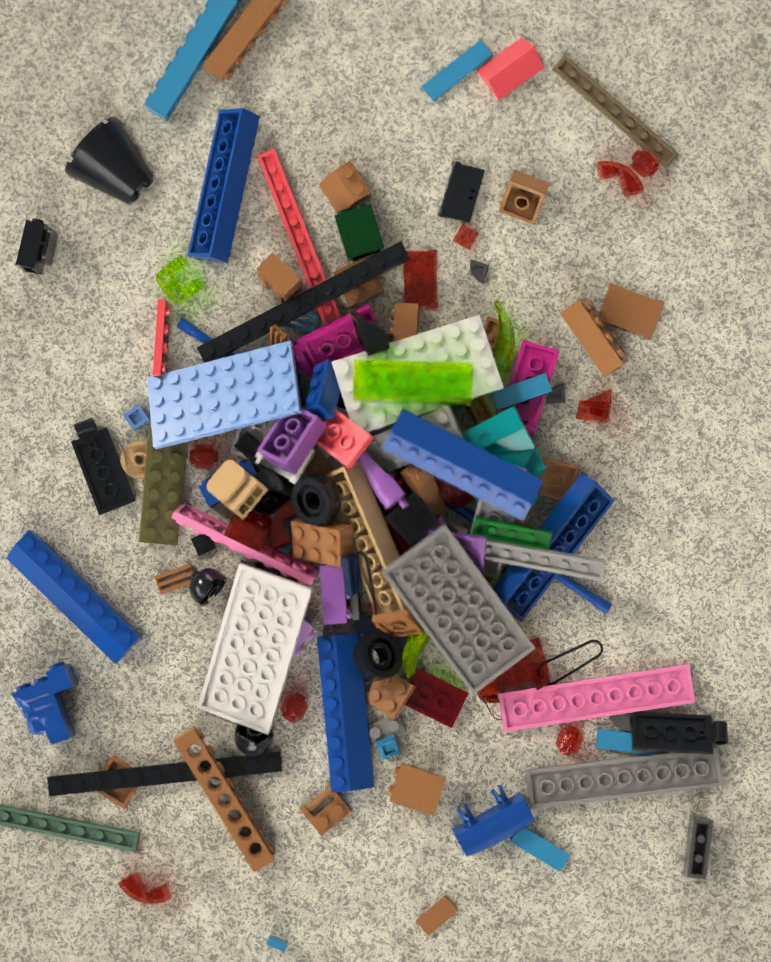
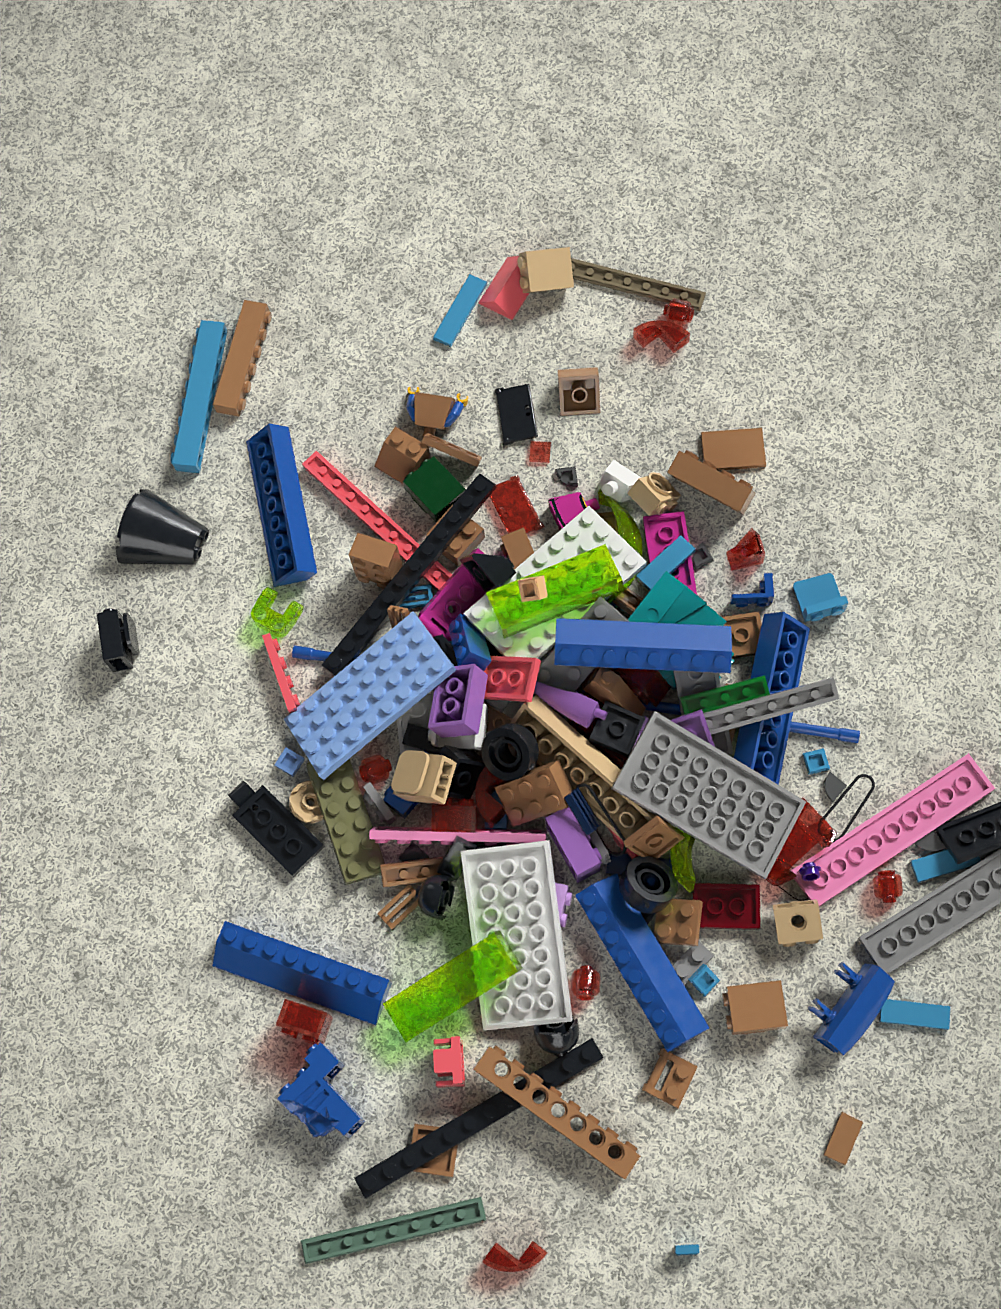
camera: 20 degrees left, 15 degrees down
(58, 639) = (304, 1021): none -> clear red brick
(159, 723) = (449, 1062): none -> coral panel
(187, 666) = (452, 985): none -> clear neon green brick
(195, 494) = (373, 797): none -> light grey plate
(197, 556) = (409, 871): none -> medium nougat tile
(230, 564) = (452, 861): none -> black tile
(390, 158) = (433, 410): none -> medium nougat torso
(390, 202) = (452, 449): none -> medium nougat tile
(393, 375) = (532, 588): none -> light nougat slope
(466, 305) = (568, 506): none -> dark pink torso
(475, 744) = (789, 933): none -> tan brick
(512, 702) = (810, 871): none -> dark purple plate
(518, 300) = (617, 482): none -> white torso
(542, 325) = (654, 494): none -> tan brick
(546, 71) = (545, 270): none -> tan brick
(564, 613) = (816, 761): none -> dark azure tile
(567, 640) = (833, 786): none -> dark grey tile
(596, 448) = (762, 599): none -> blue bracket
(636, 477) = (819, 597): none -> dark azure bracket

